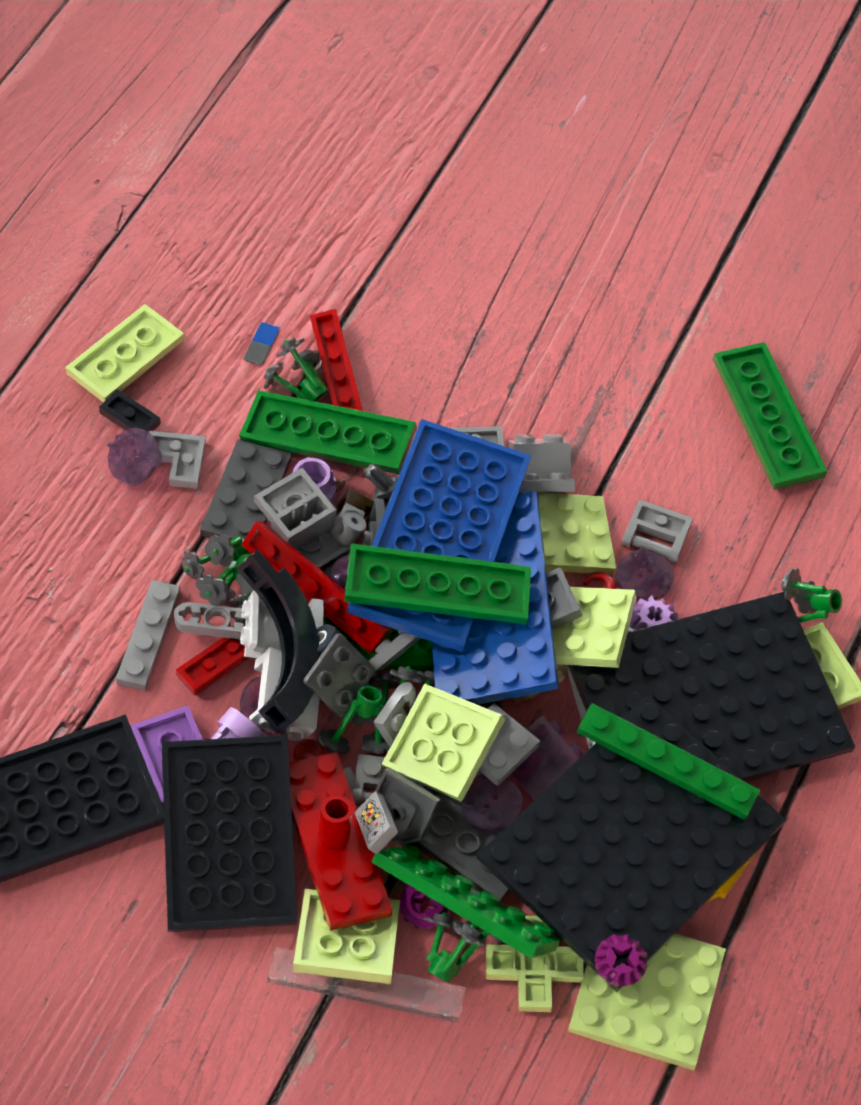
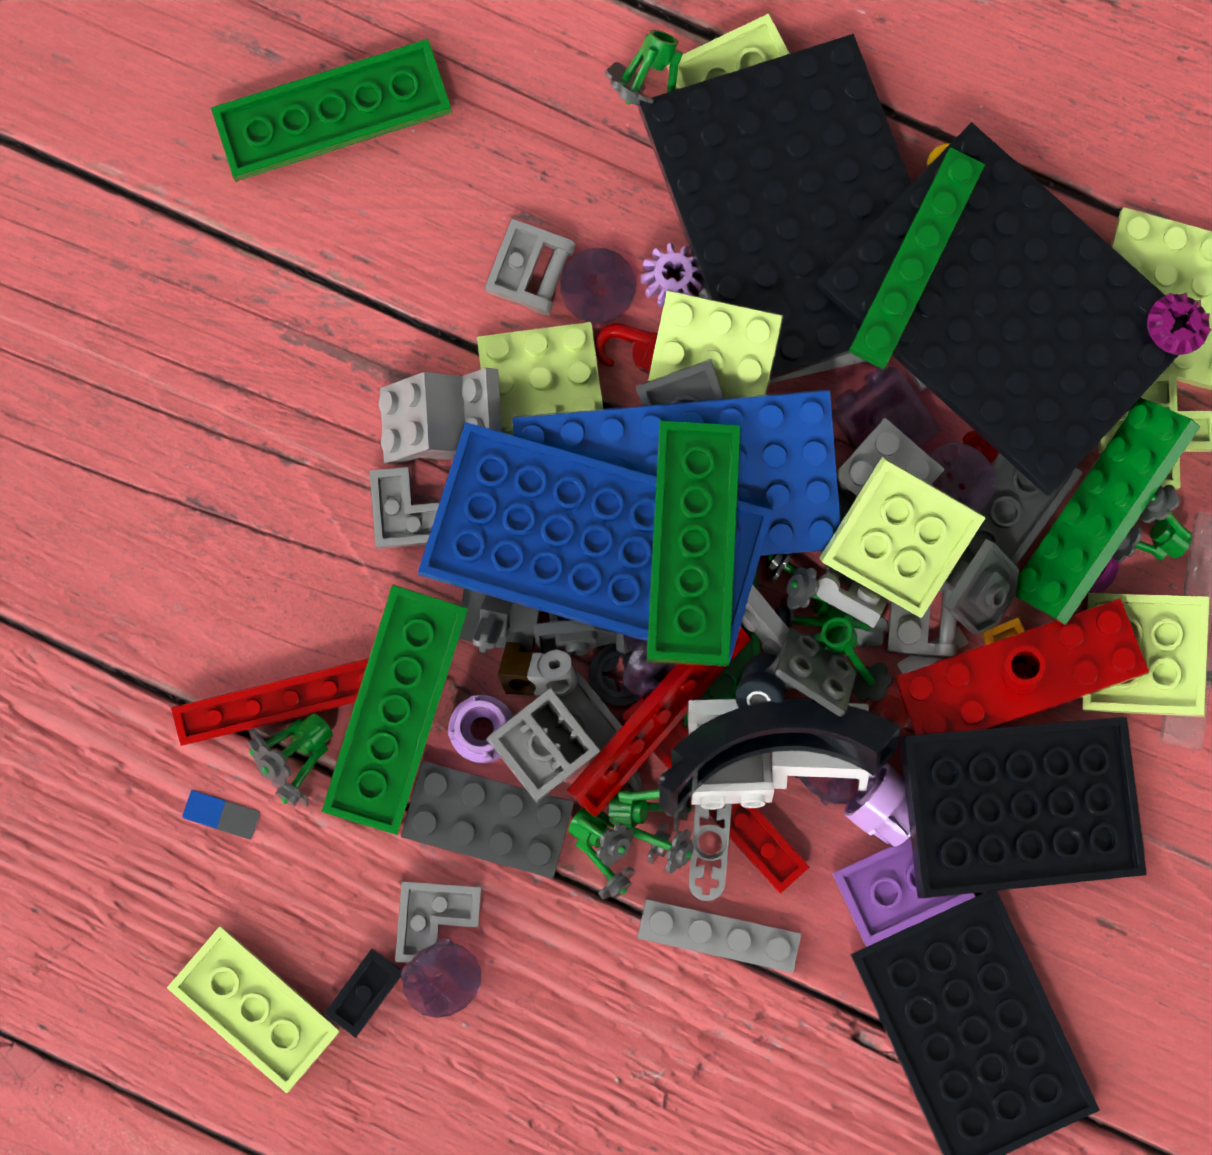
camera: 85 degrees left, 25 degrees up
(376, 822) = (1018, 619): light grey tile -> none

